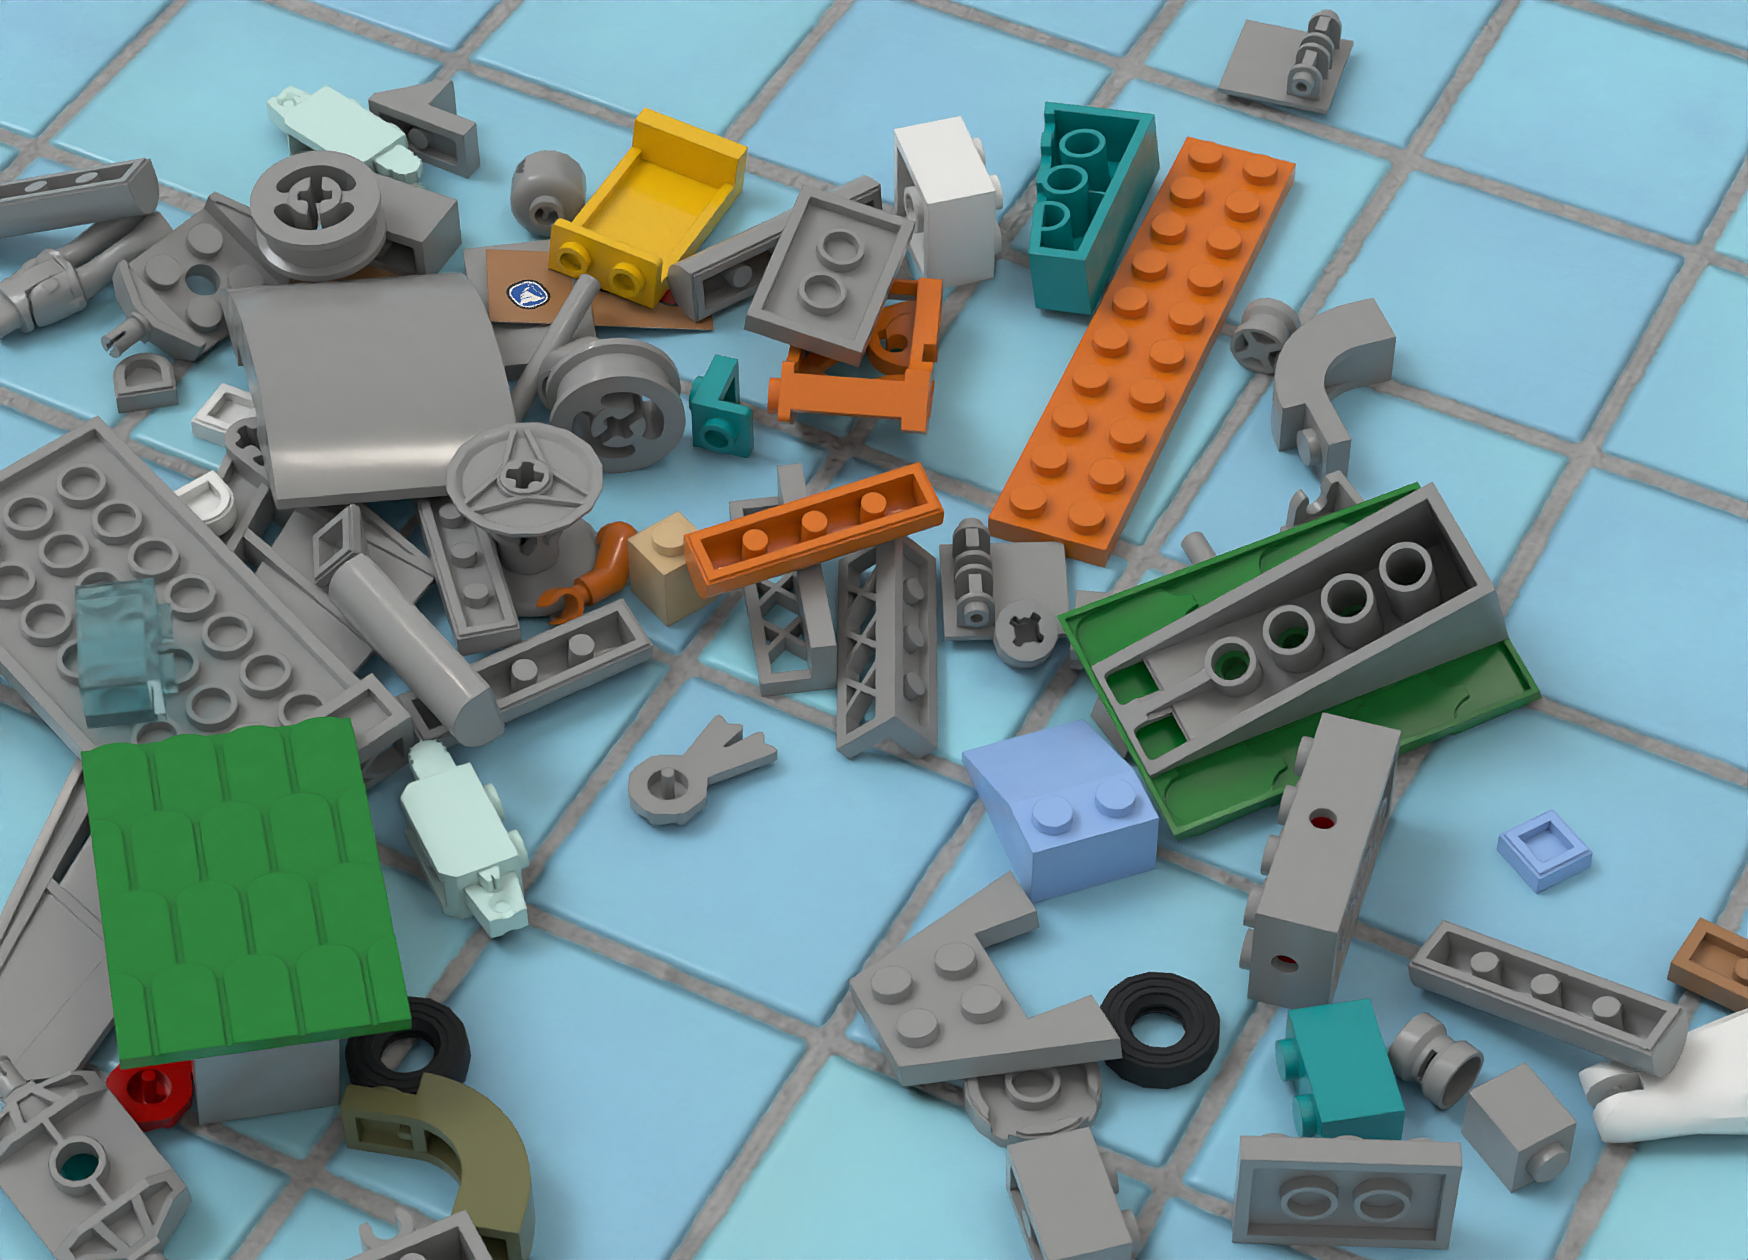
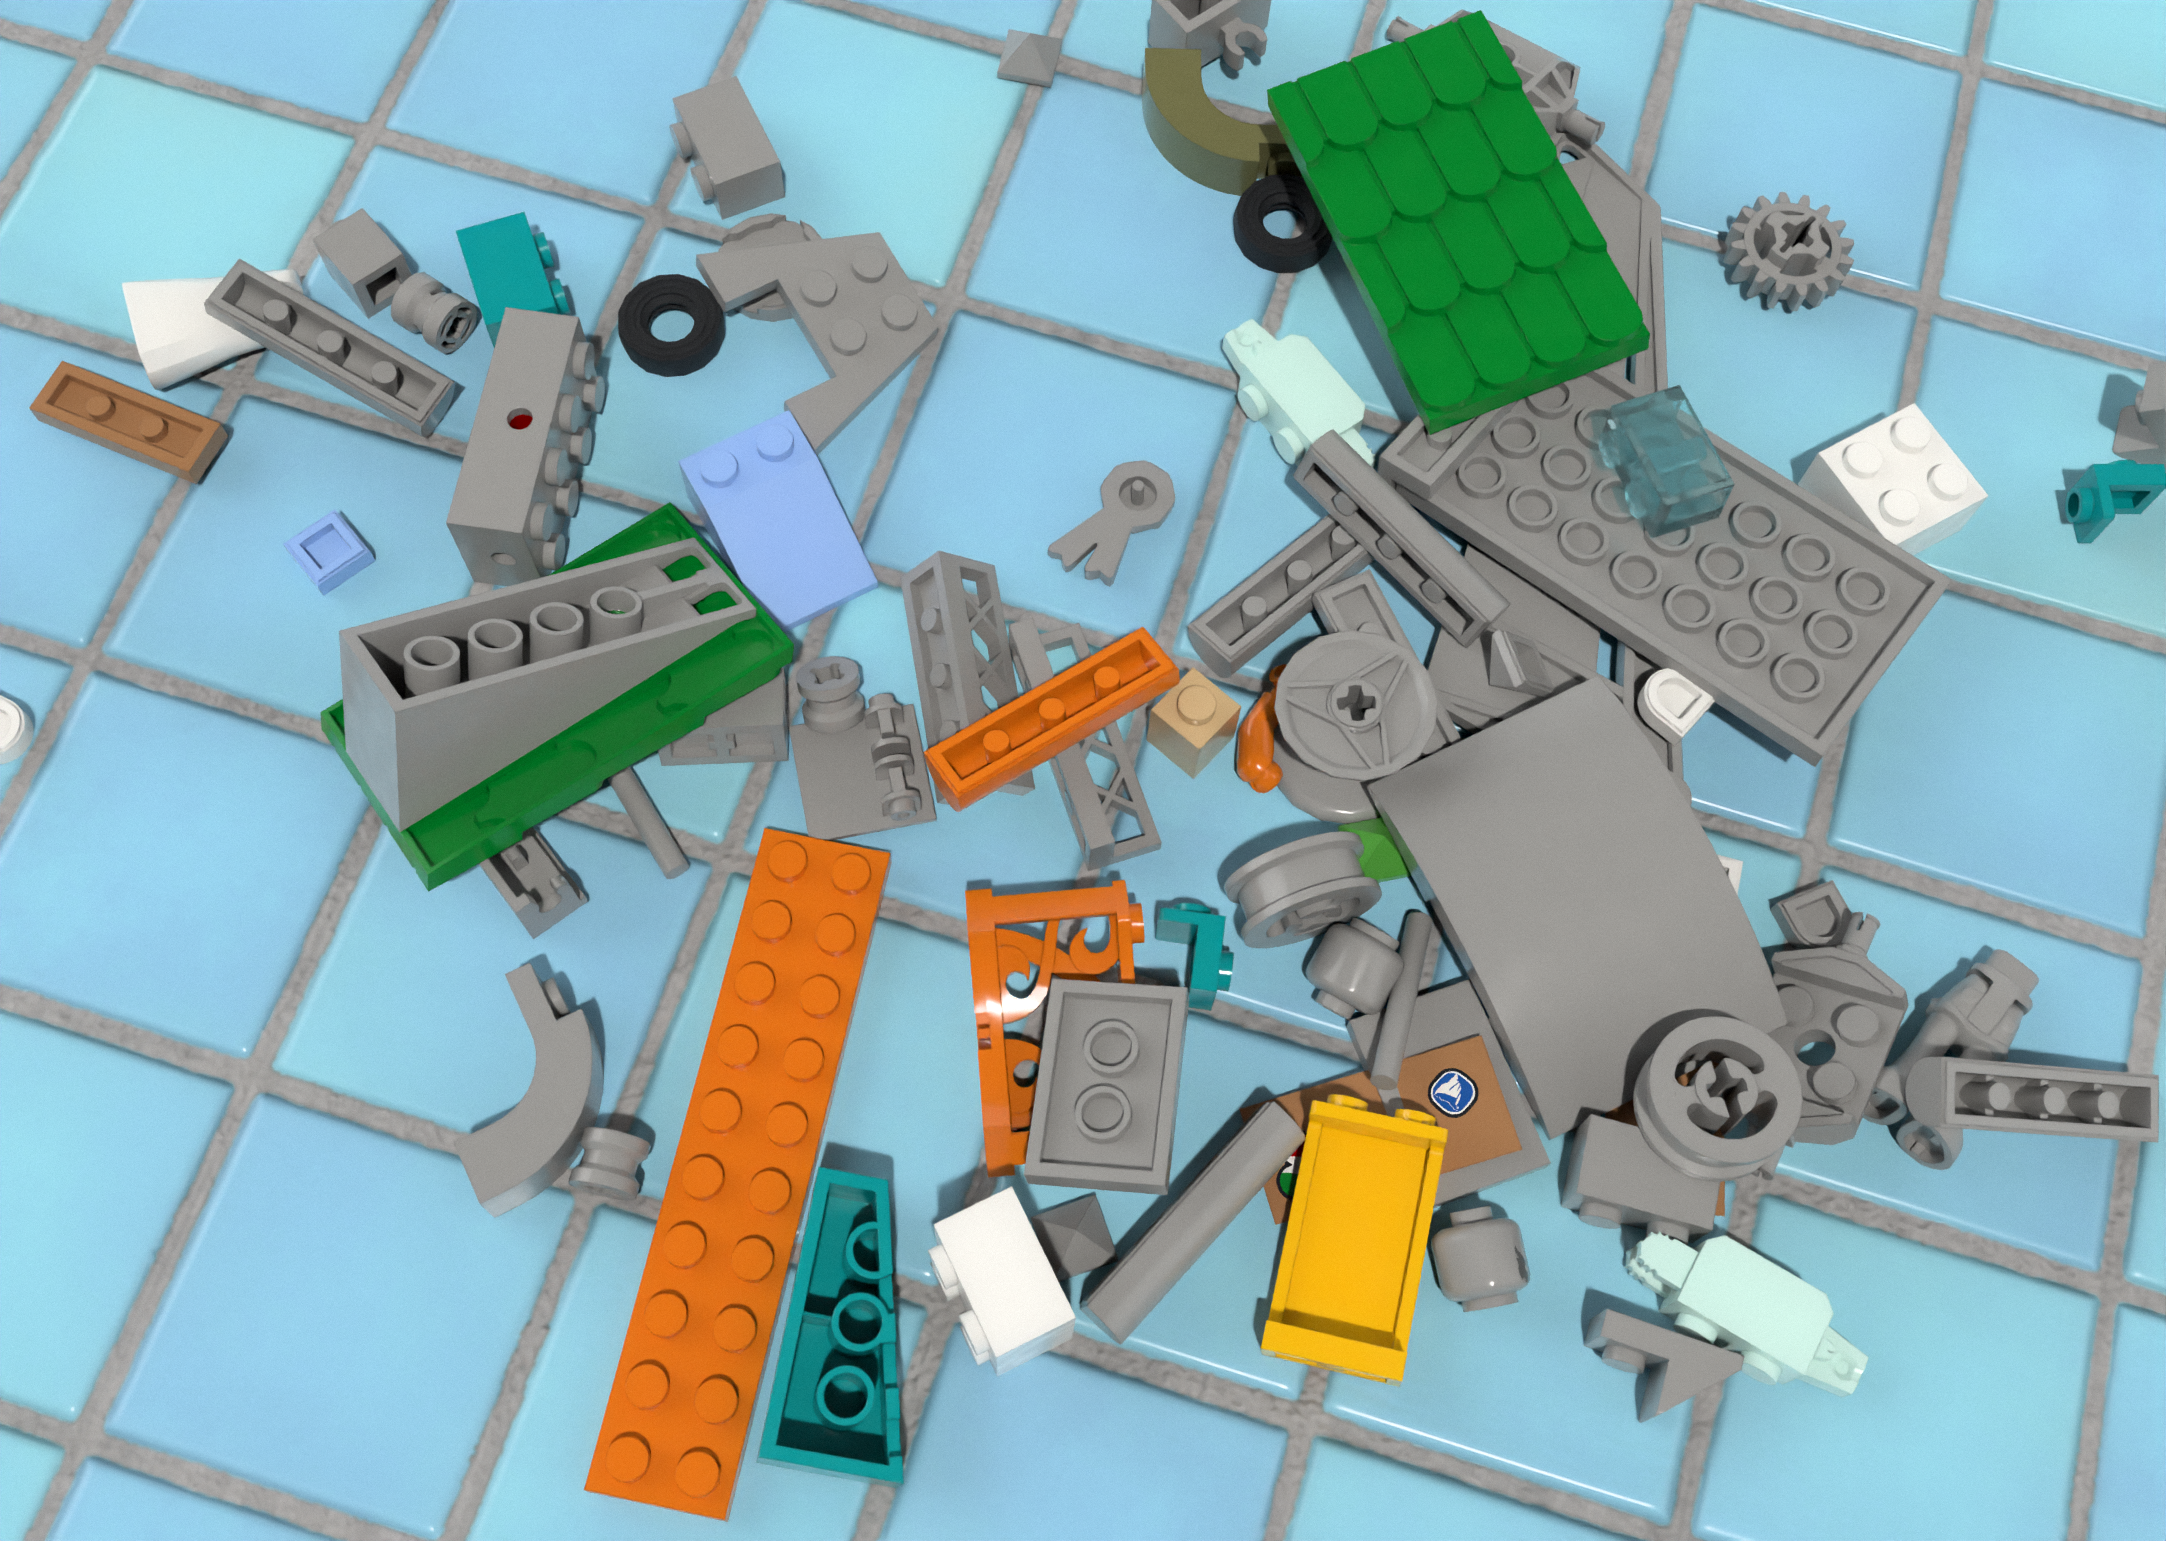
camera: 165 degrees right, 20 degrees up
(1345, 1191) = (503, 155): light grey plate -> none

